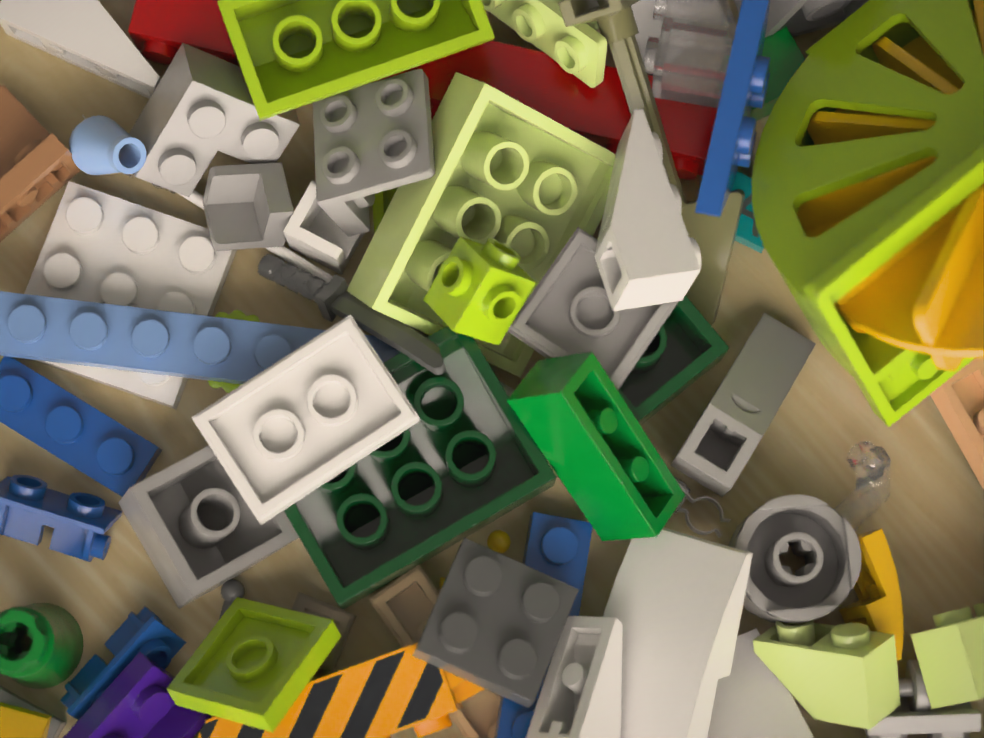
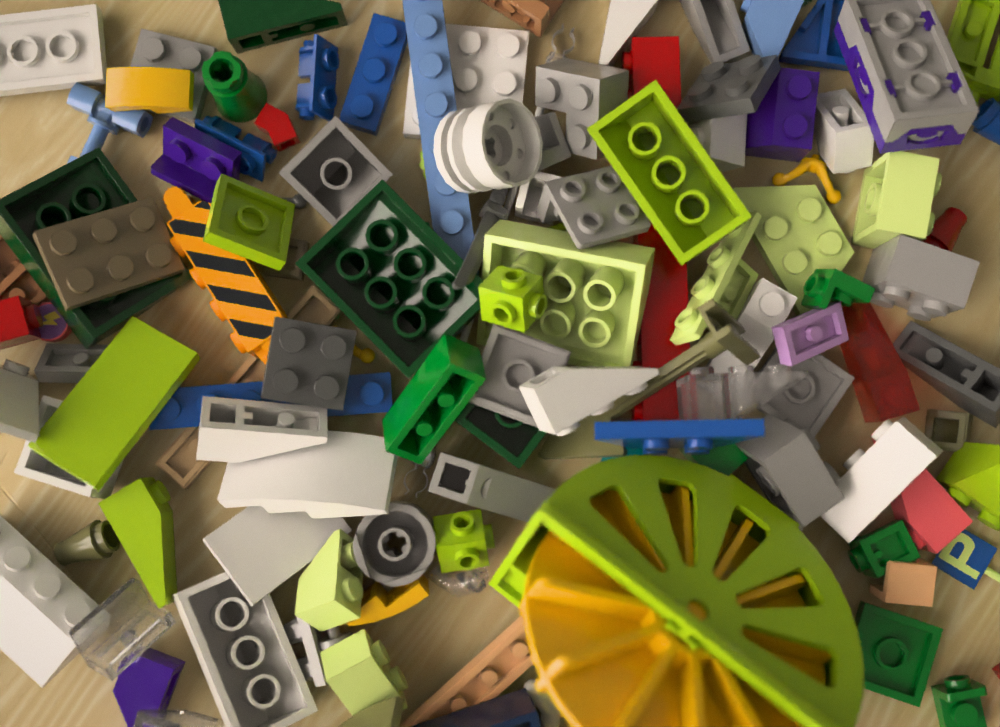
camera: 80 degrees right, 5 degrees up
(104, 147) = (551, 43): light blue cone -> none
(108, 594) = (278, 126): none -> red piece
(242, 271) = (488, 147): none -> white wheel
(305, 419) = (405, 212): white tile -> none
(812, 460) = (462, 540): none -> lime brick

